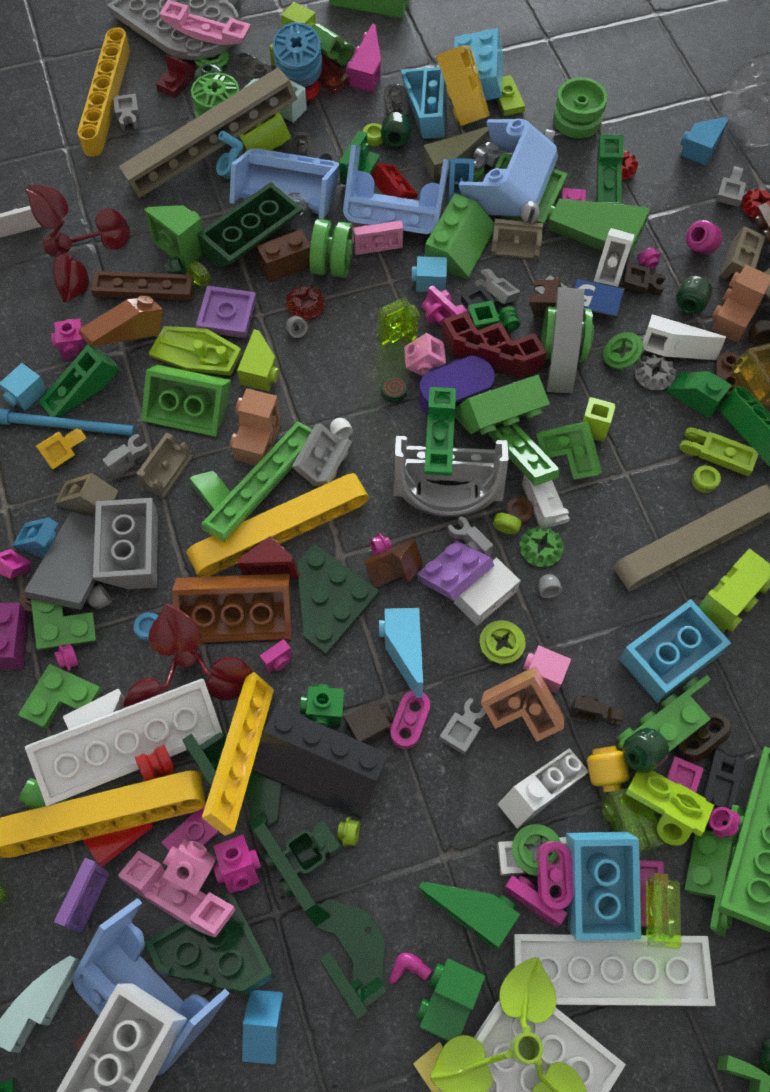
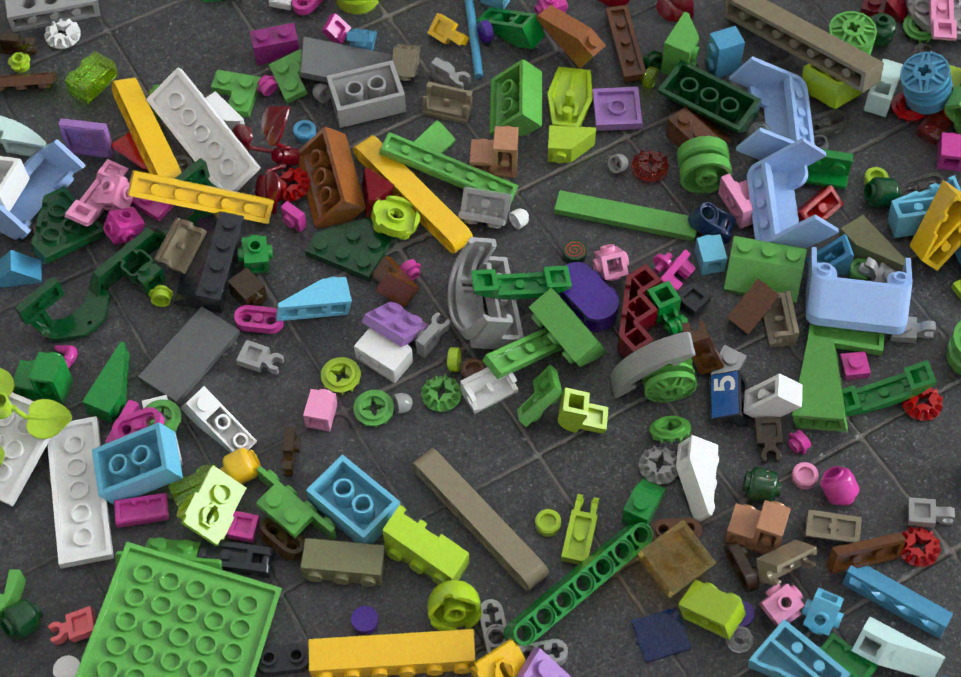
camera: 80 degrees right, 5 degrees down
(76, 409) = (485, 31): none -> dark purple tile
(155, 764) = (185, 153): red wheel -> none
(195, 195) = (724, 52): none -> dark azure brick
(224, 163) = (799, 59): medium azure plate -> none
(224, 638) = (296, 191): none -> red gear
(291, 792) = (180, 245): none -> dark tan hinge
(317, 555) = (396, 227): none -> lime plate
(358, 338) = (624, 215): none -> bright green tile
(396, 263) = (712, 221): none -> dark blue piece
(397, 321) = (637, 232): clear neon green bracket -> none
(440, 810) = (189, 355): none -> dark grey tile
(500, 288) = (713, 313): light grey plate -> none
(504, 251) = (753, 306): none -> reddish brown hinge
(525, 212) = (805, 317): light grey hinge -> none
(525, 697) = (282, 392): nougat brick -> none
(559, 608) = (383, 403): none -> bright green gear
(645, 750) = (252, 481): dark green head -> none
(663, 912) = (121, 508): clear neon green bracket -> none
(680, 265) = (804, 475): none -> bright pink tile
(719, 817) = (201, 549): dark pink plate -> none
(740, 676) = (343, 562): none -> olive brick

